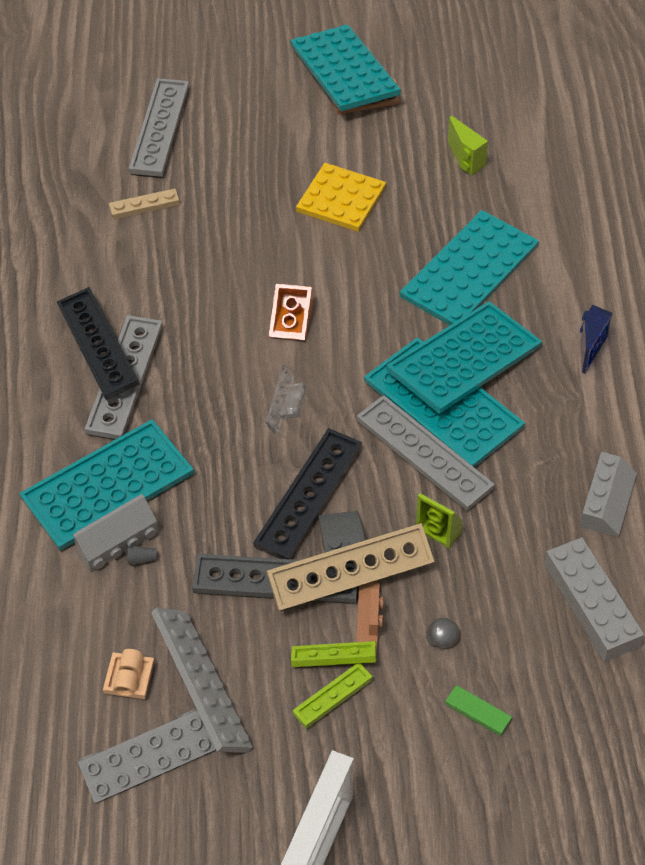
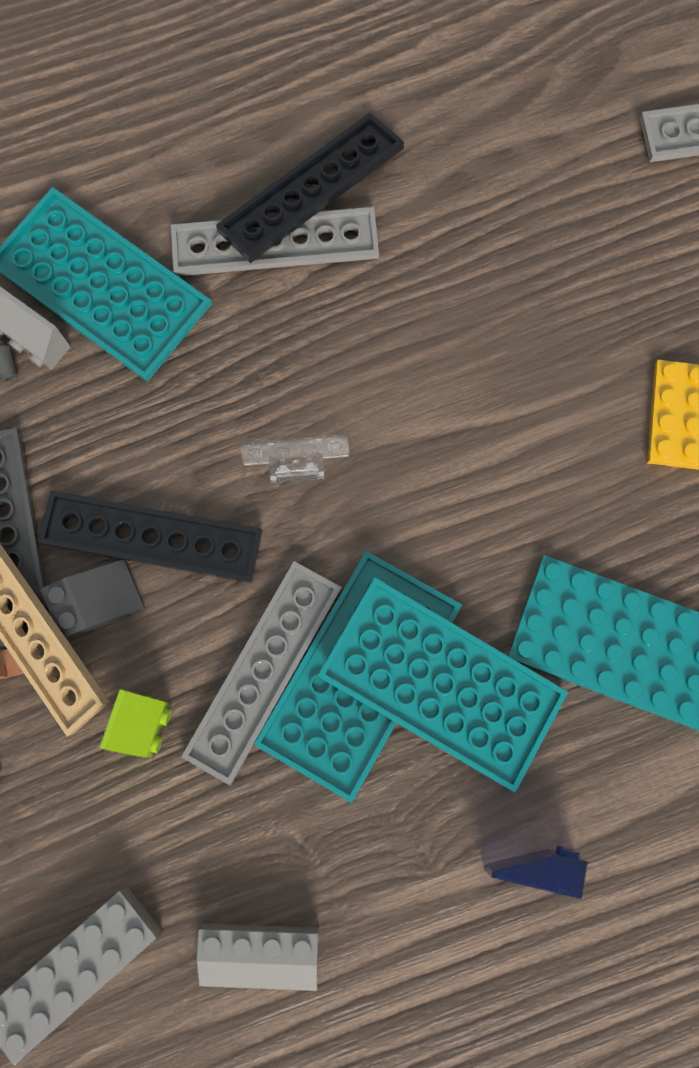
camera: 75 degrees right, 25 degrees up
(144, 203) = (589, 157): tan plate -> none
(291, 312) = (452, 416): orange slope -> none

